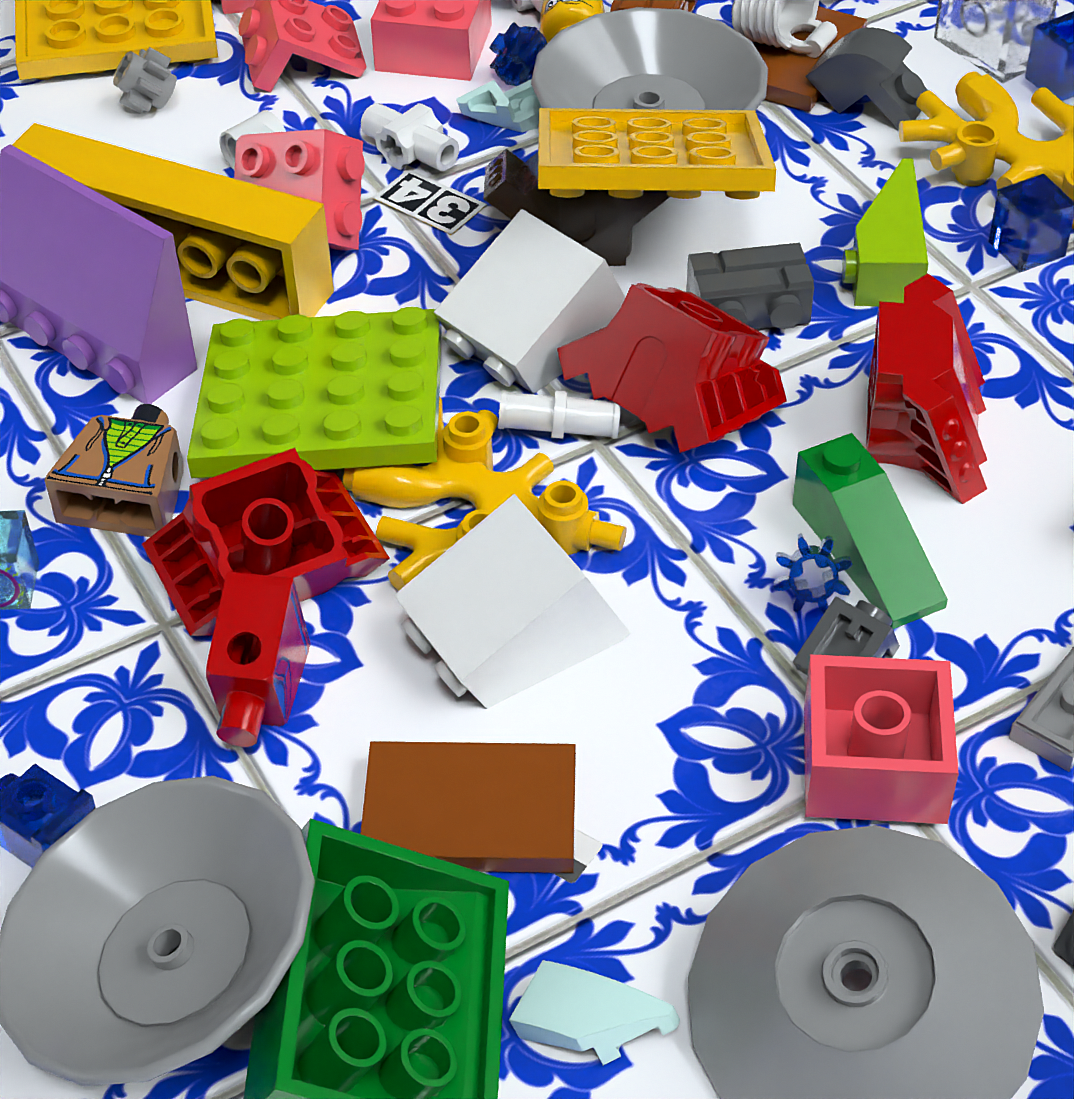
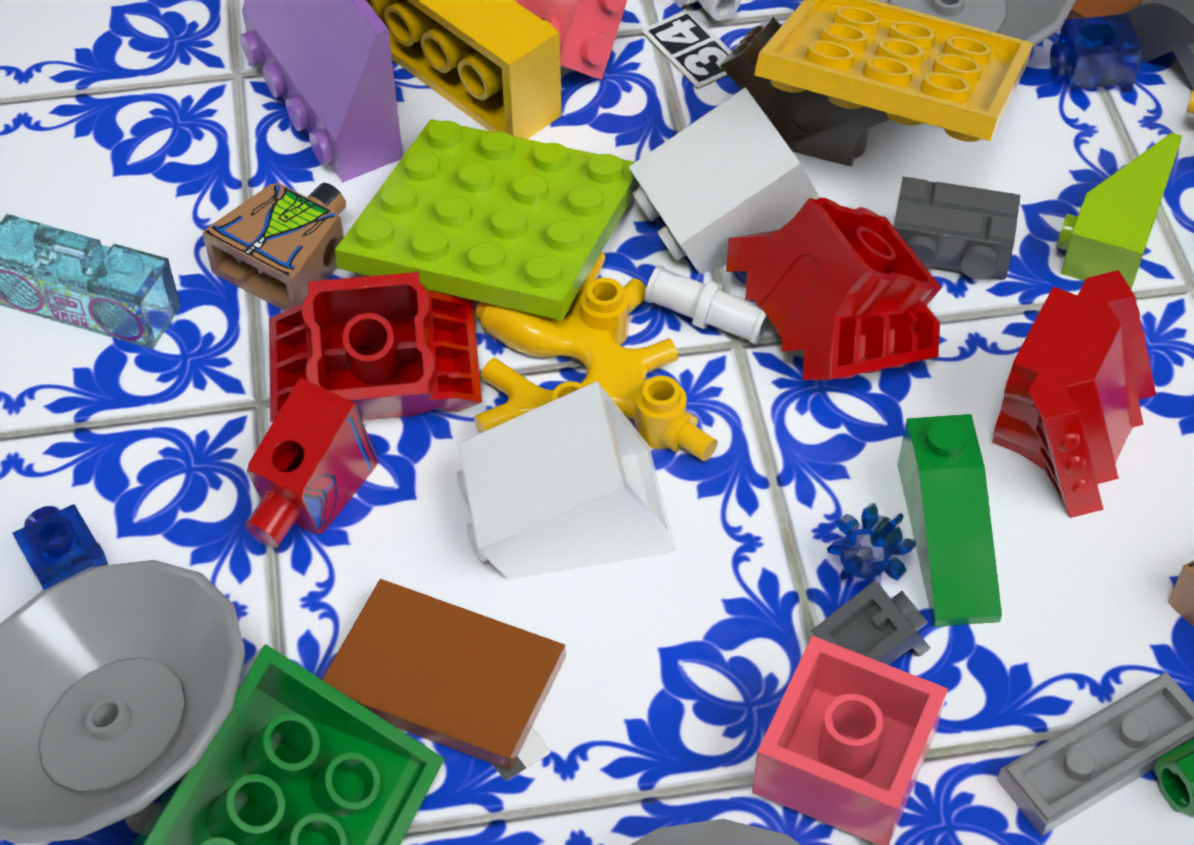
camera: 20 degrees right, 5 degrees up
(802, 112) = (1097, 52): none -> clear blue brick

